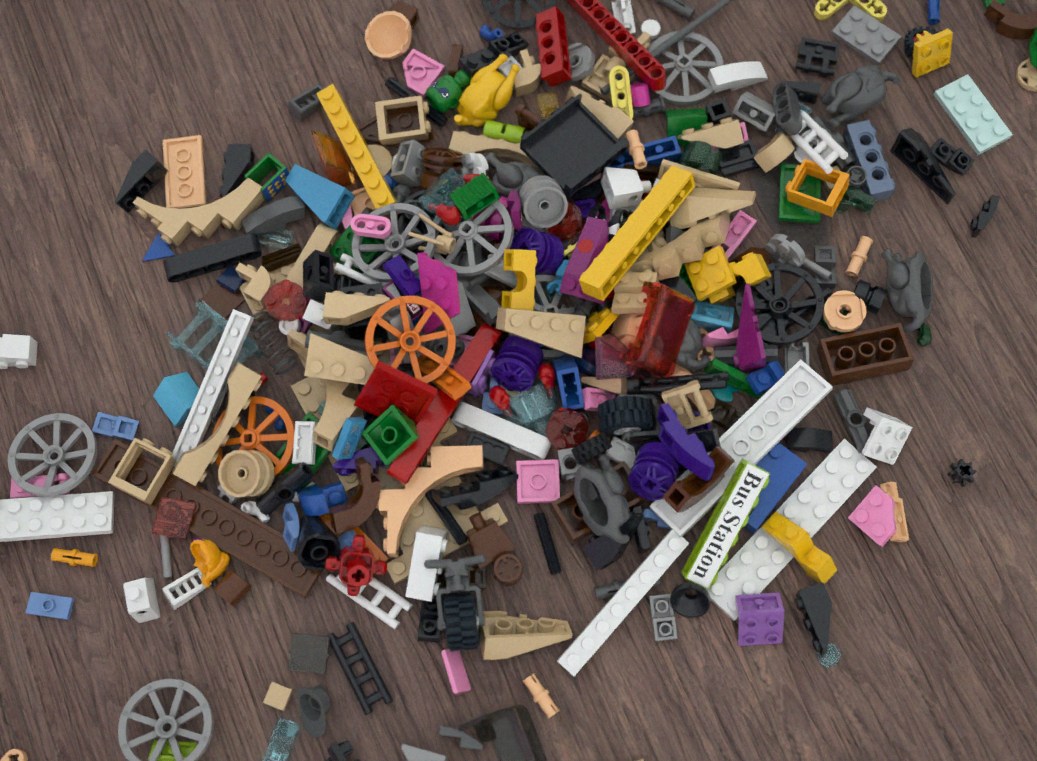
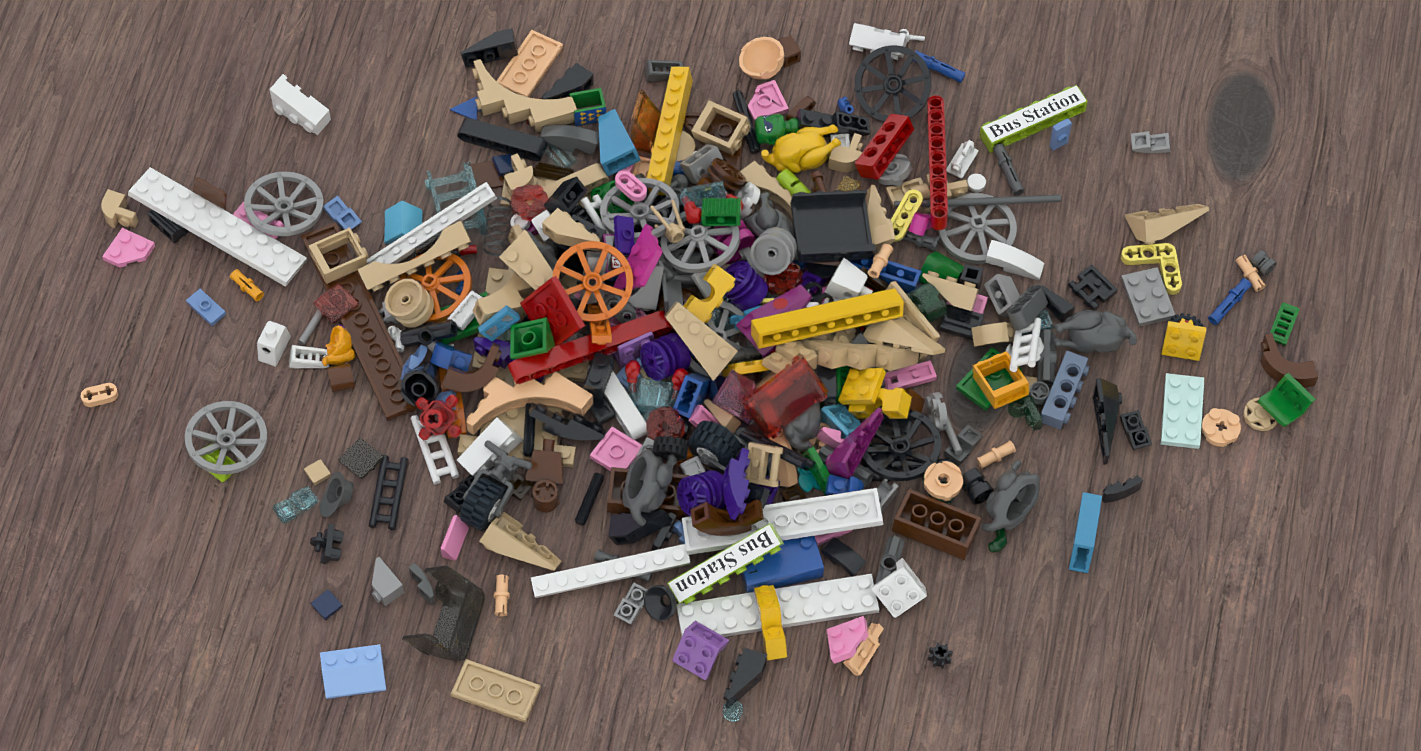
camera: 30 degrees right, 10 degrees down
(473, 422) = (598, 375): none -> black brick
(515, 209) = (746, 243): magenta slope -> none
(990, 274) = (1085, 532): none -> dark azure slope
(1021, 100) = (1225, 418): none -> light nougat plate

